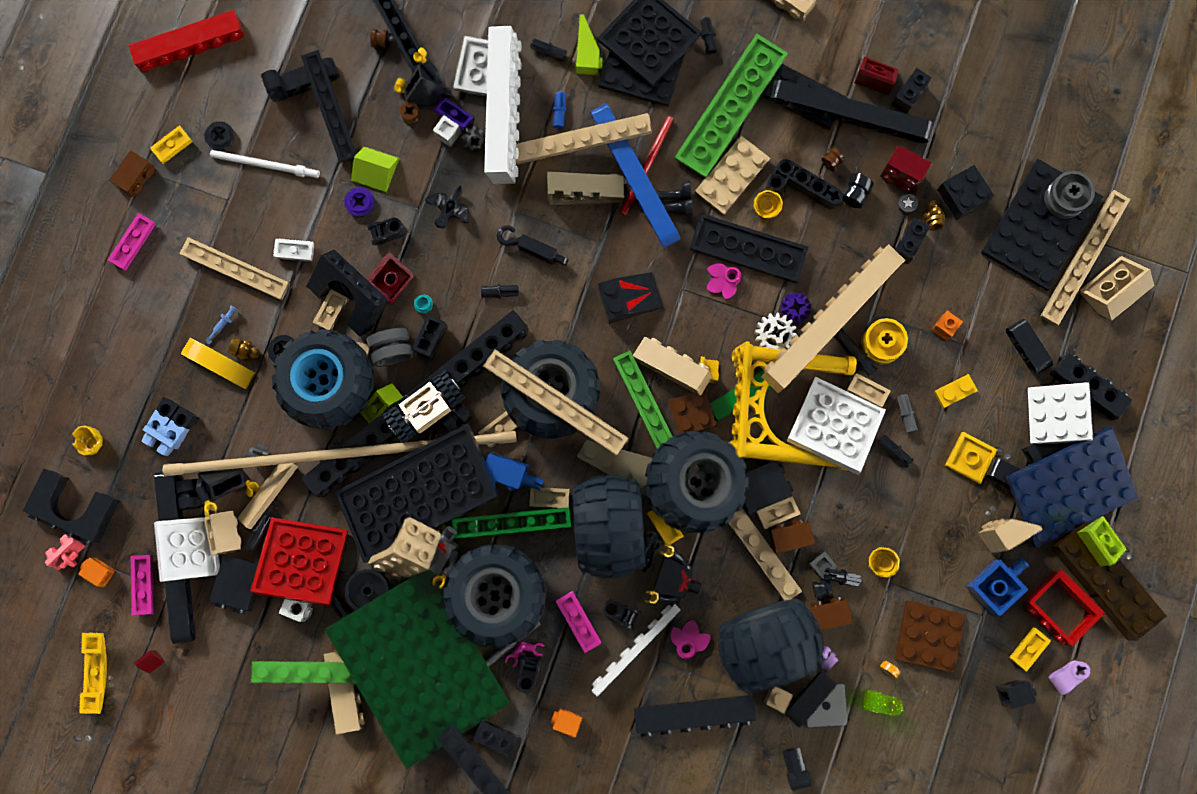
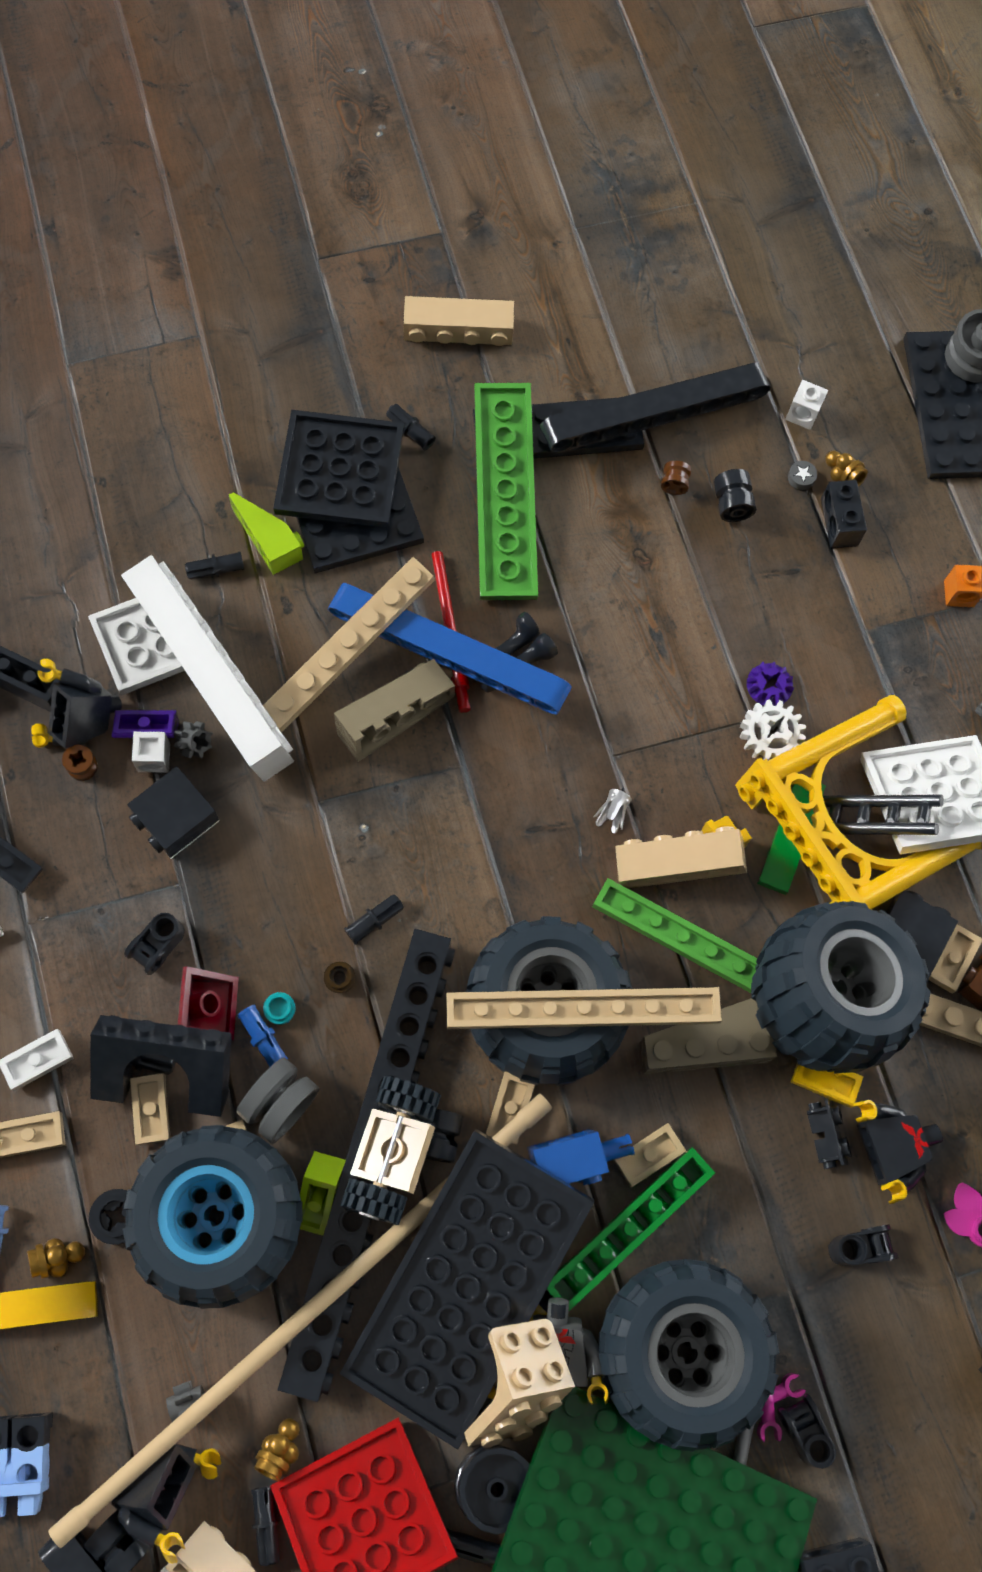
camera: 45 degrees left, 10 degrees down
(266, 494) = (238, 1457): tan tile -> none
(285, 505) = (277, 1451): none -> pearl gold piece
(360, 193) = (80, 917): dark purple gear -> none
(373, 169) = (78, 870): lime slope -> none
(406, 311) = (261, 1035): none -> blue pin
(429, 337) = (324, 1047): black brick -> none
(436, 170) = (172, 813): none -> black piece
(449, 207) = (224, 852): black animal -> none
(456, 308) = (335, 968): none -> dark brown plate
(532, 247) = (377, 830): black piece -> none
(559, 110) = (285, 632): blue axle -> none
(566, 722) = (913, 1463): orange brick -> none
(578, 622) = (818, 1302): dark pink plate -> none
(608, 526) = (776, 1132): black wheel -> none
(629, 296) = (552, 811): black slope -> none
(629, 654) = (921, 1295): white plate -> none
(664, 314) = (614, 809): none -> flat silver piece
(692, 412) = (748, 905): reddish brown plate -> none
(721, 281) = (652, 712): dark pink plate -> none
(732, 175) = (567, 575): tan plate -> none
(749, 248) = (656, 649): black plate -> none
(768, 204) = (641, 579): yellow hair -> none
(792, 423) = (892, 825): none -> black bar
(804, 187) = (711, 525): black beam -> none
(832, 319) = (833, 667): tan brick -> none
(852, 348) = (881, 689): black pin -> none
(868, 390) = (936, 725): tan plate -> none
(876, 76) = (651, 353): dark red slope -> none
(889, 331) = (909, 652): yellow wheel -> none
(905, 169) = (774, 433): dark red brick -> none
(911, 91) = (706, 342): black brick -> none
(941, 164) = (806, 404): none -> white brick
(965, 192) = (860, 419): black brick -> none

